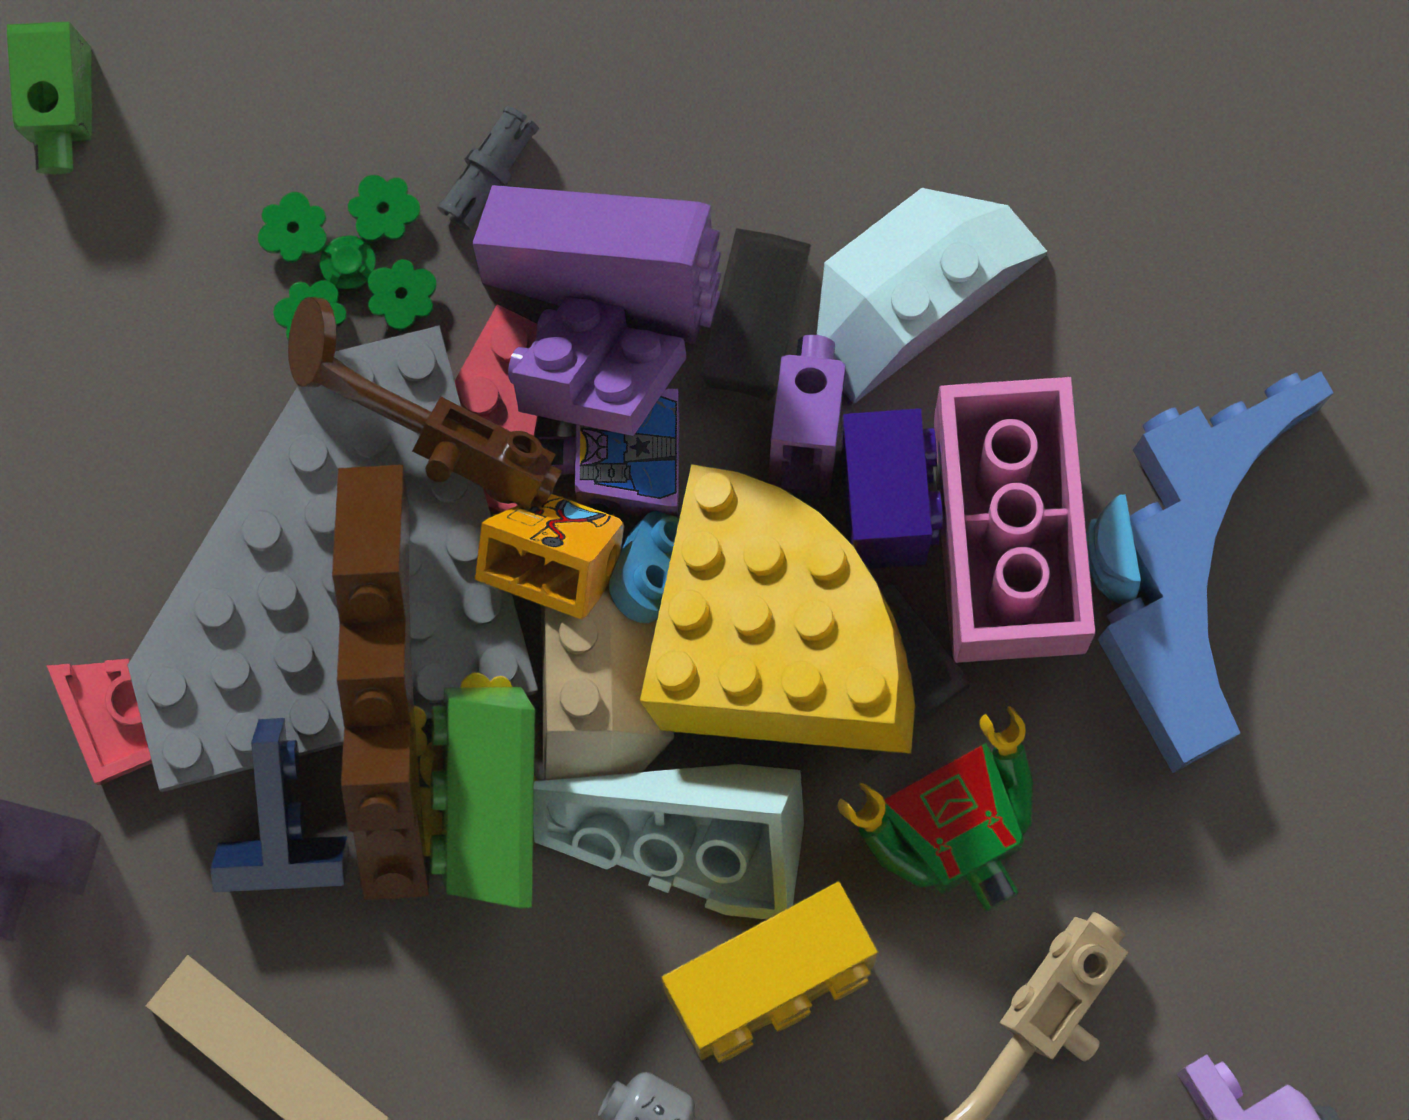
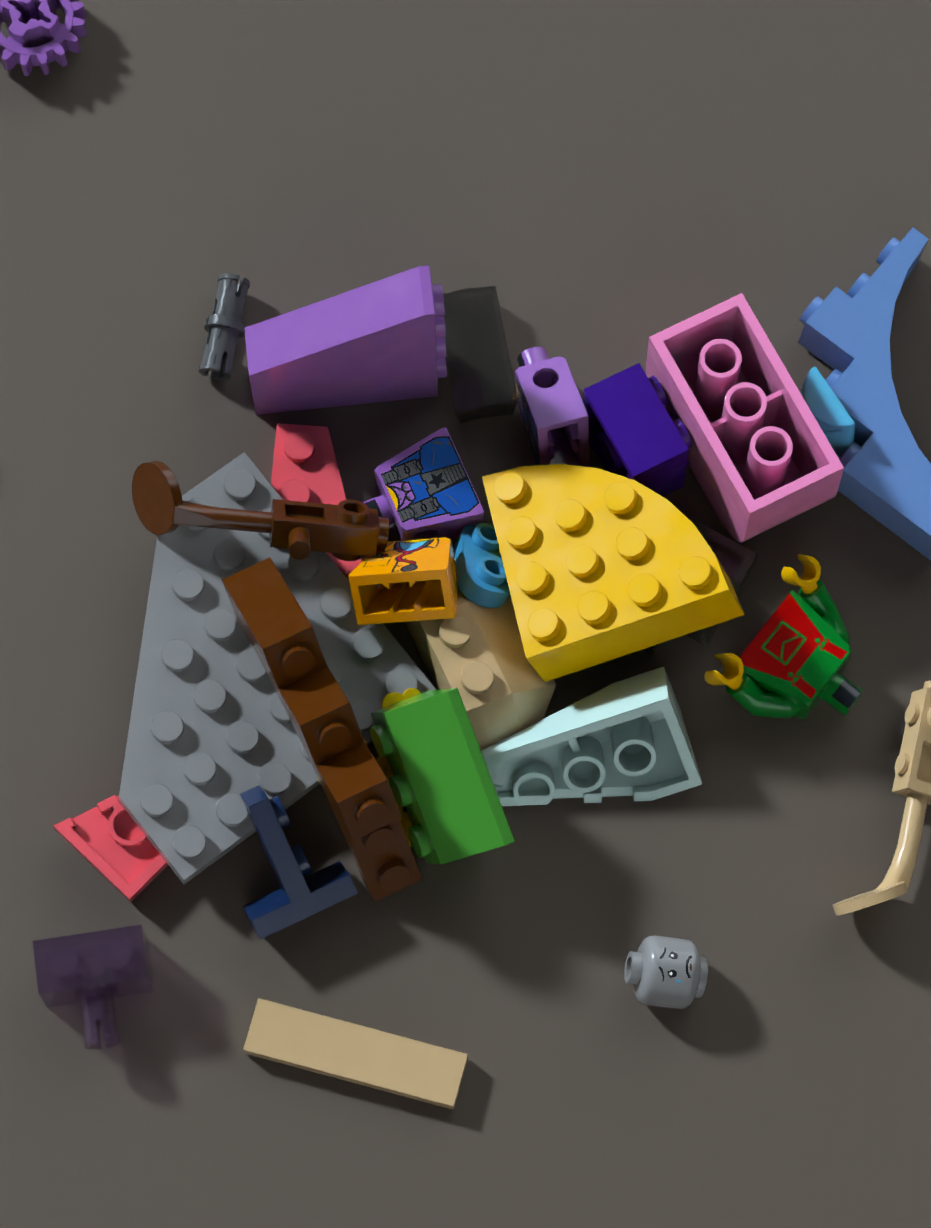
camera: 25 degrees left, 5 degrees down
(350, 260) = (147, 436): green plant -> none
(593, 367) = (375, 437): medium lavender plate -> none
(771, 974) = (710, 823): yellow brick -> none
(917, 280) = (584, 280): light aqua wedge -> none

